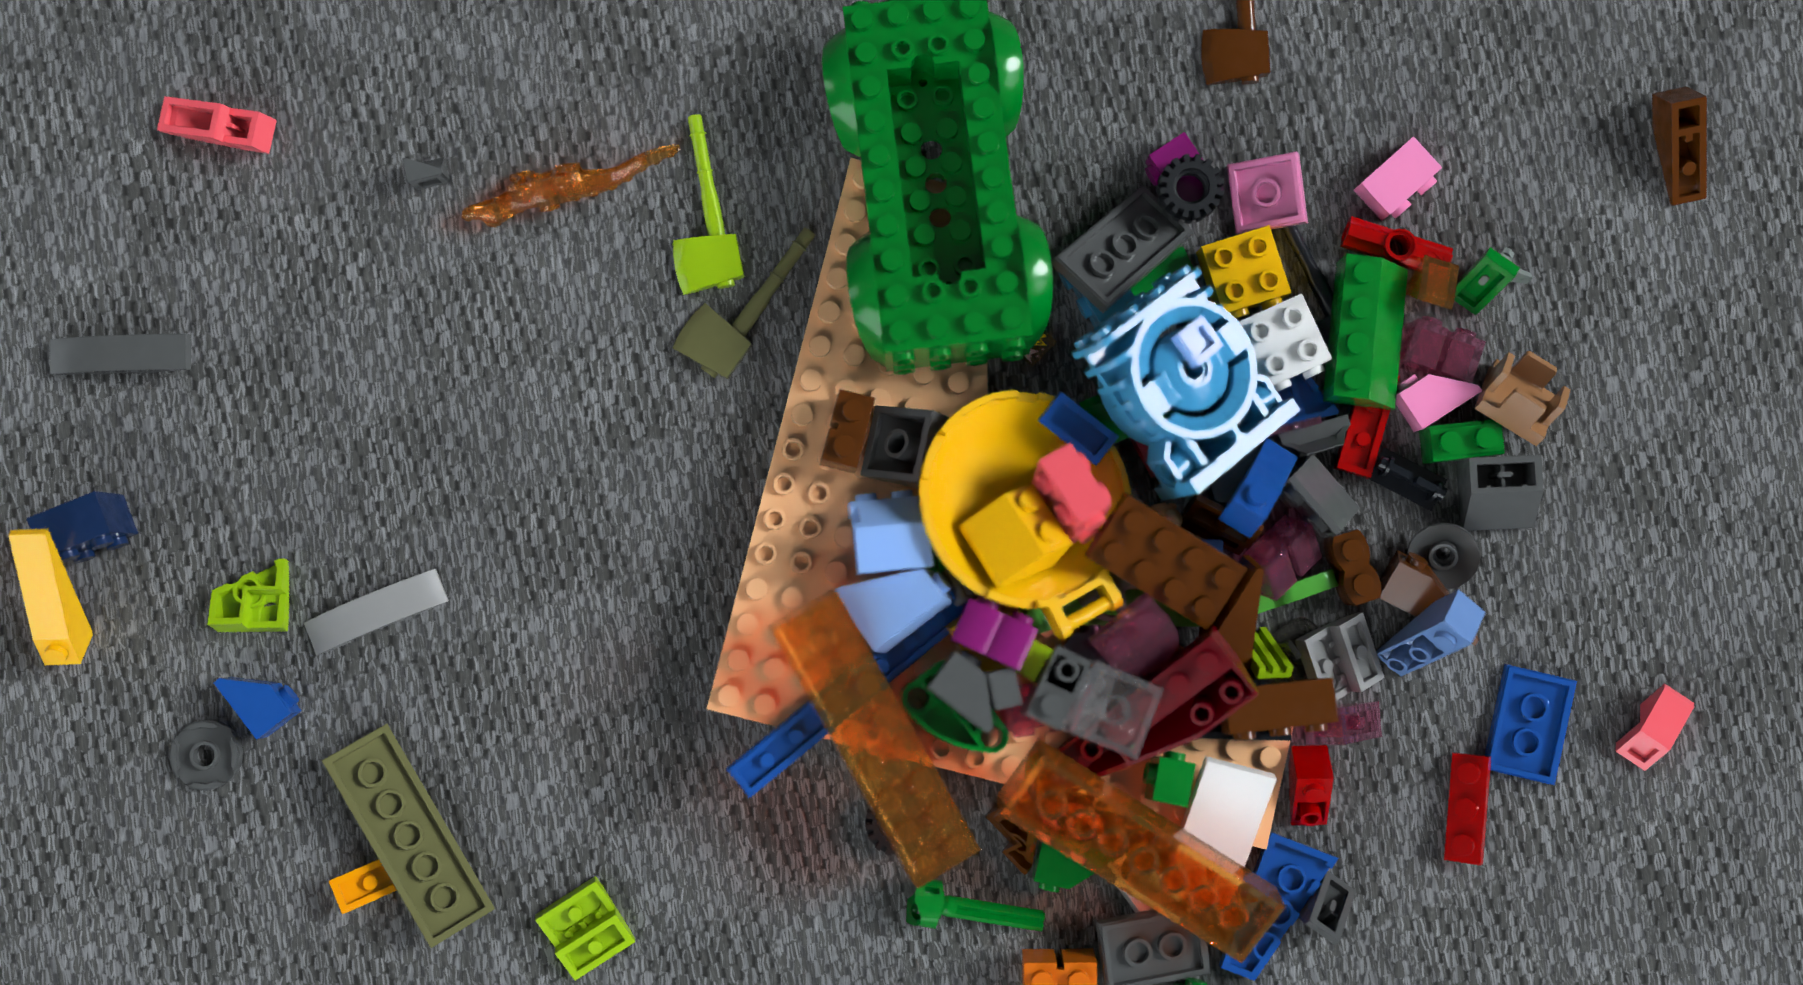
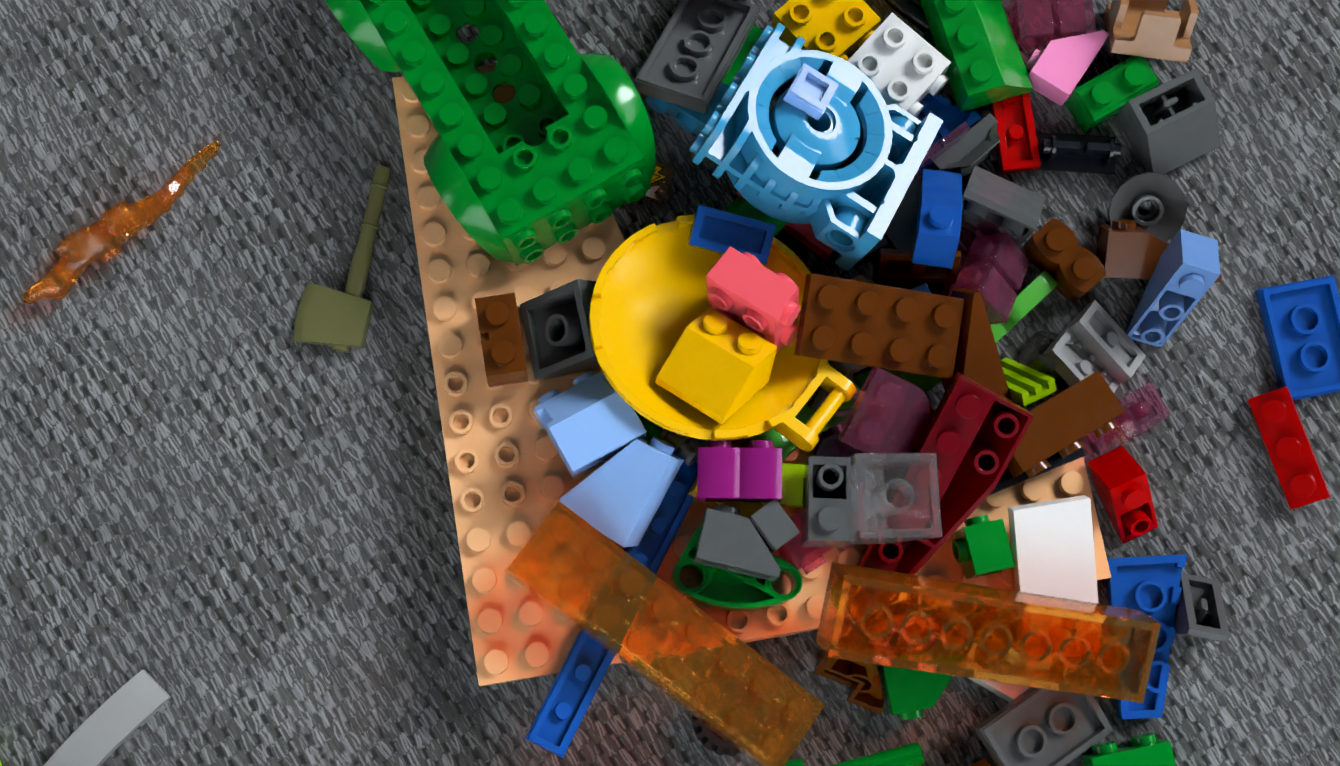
camera: 25 degrees left, 5 degrees down
(713, 258) = (297, 235): lime piece -> none

